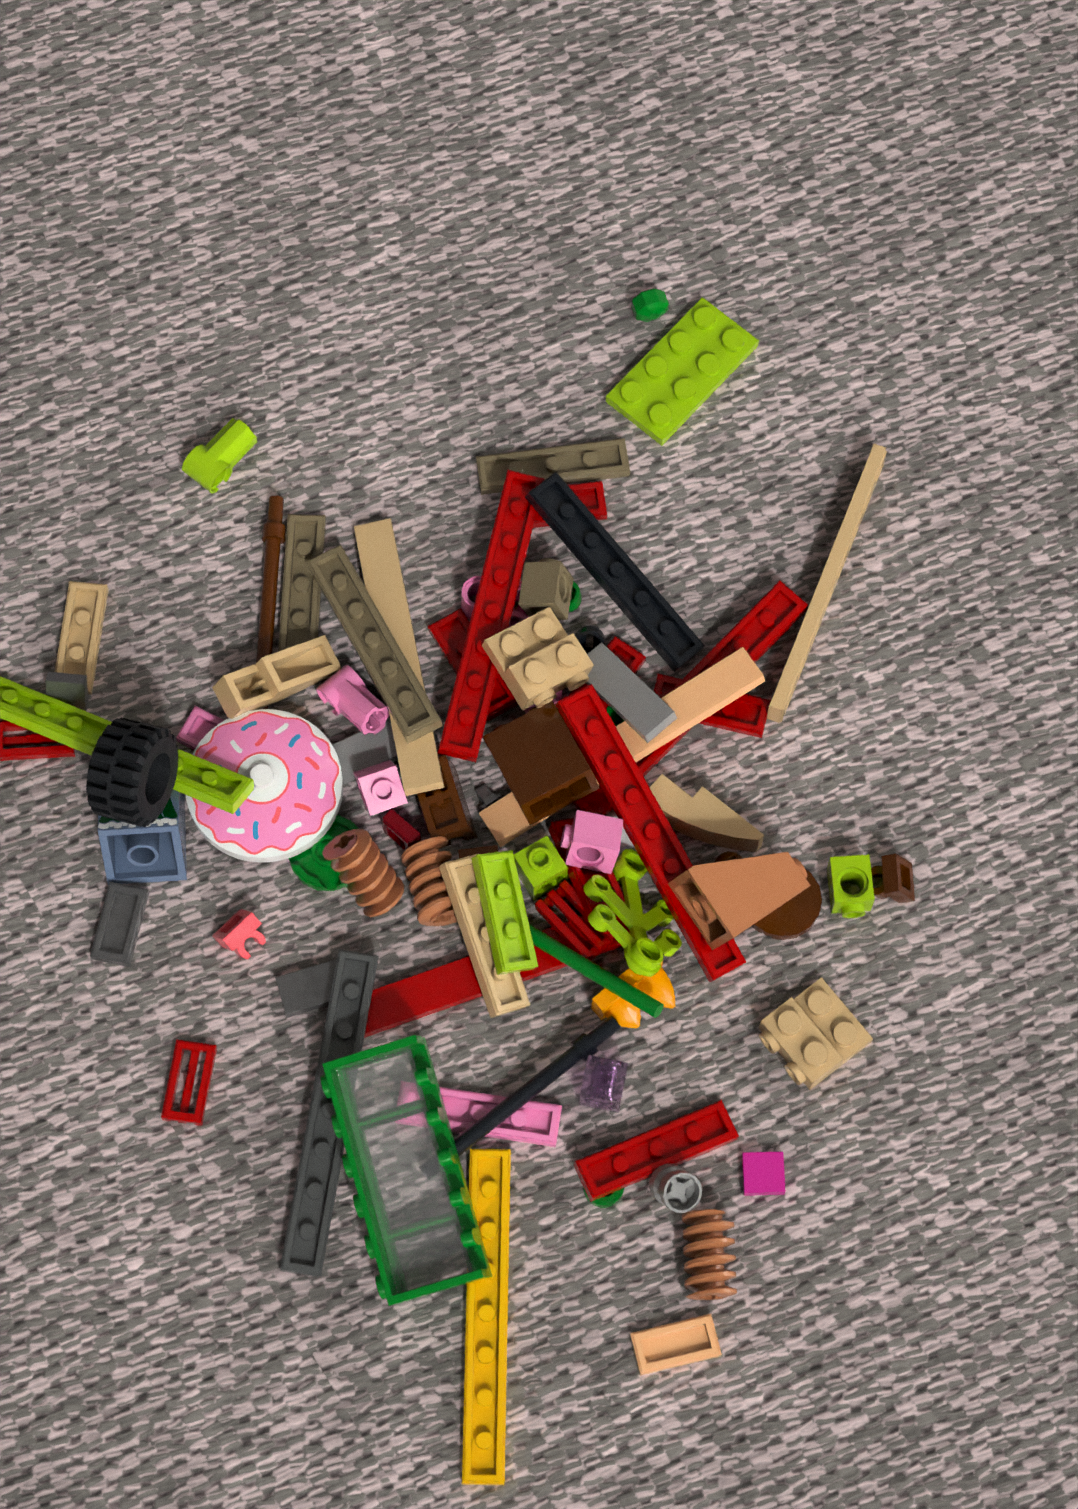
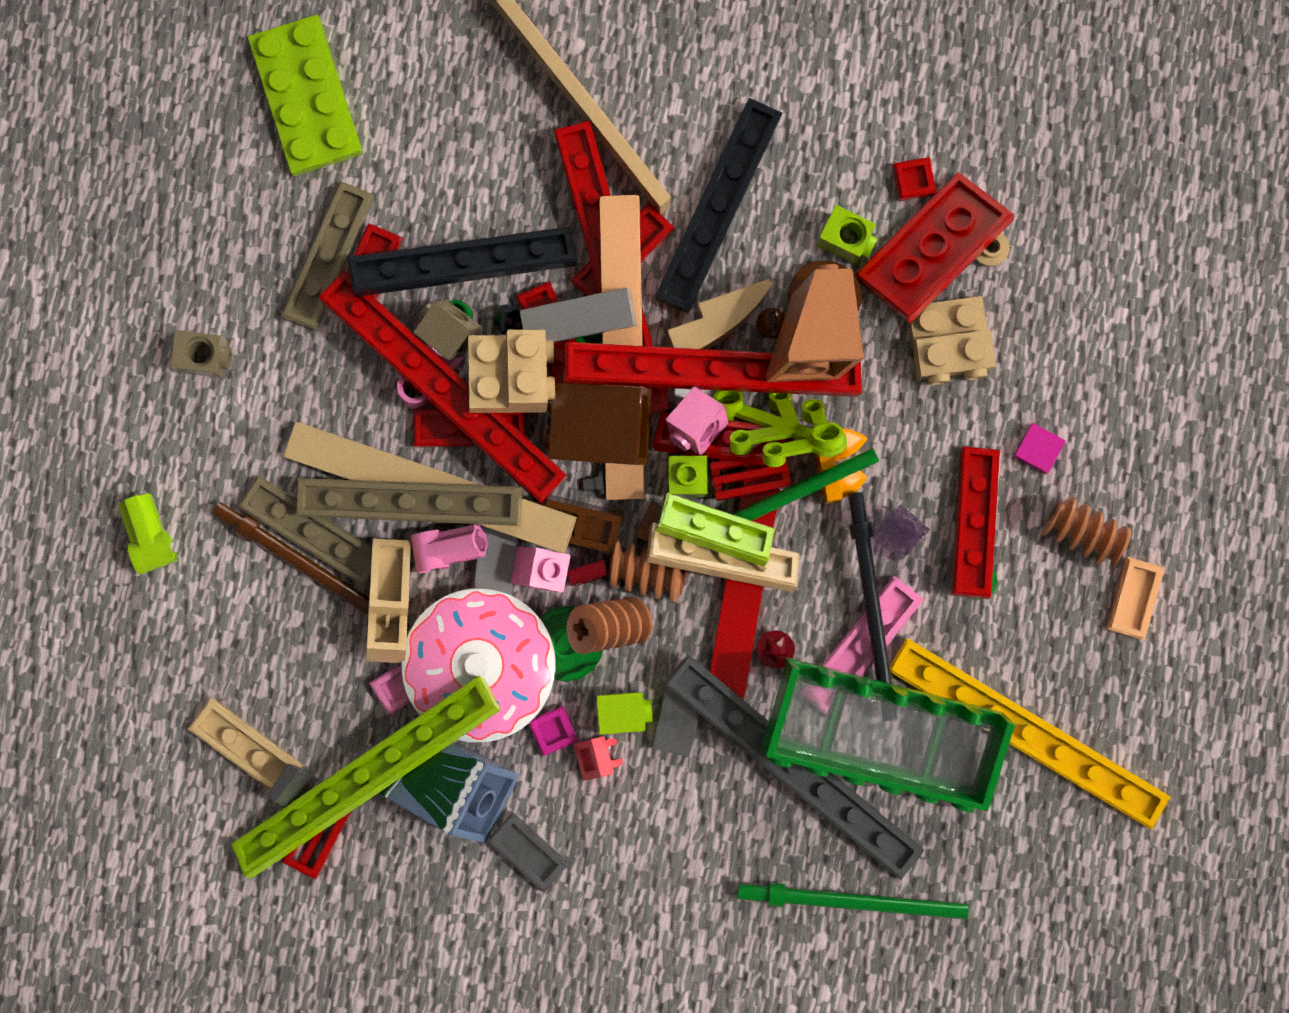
camera: 60 degrees left, 15 degrees up
(132, 772) = (422, 780): black tyre -> none
(183, 1116) = (725, 888): red tile -> none
(203, 1166) = (776, 895): none -> green bar
(242, 885) = (553, 731): none -> dark pink tile
(292, 932) = (623, 713): none -> lime brick
(397, 398) = (185, 349): none -> dark tan brick
(435, 1033) = (774, 647): none -> dark red tile
(650, 305) = (228, 85): green tile -> none
(684, 1188) = (1020, 526): light grey wheel -> none
(806, 760) = (718, 206): none -> black plate
(890, 969) = (934, 247): none -> red tile
(897, 879) = (863, 195): reddish brown tile -> none
(920, 1033) = (993, 259): none -> tan plate
(943, 919) = (914, 179): none -> red tile

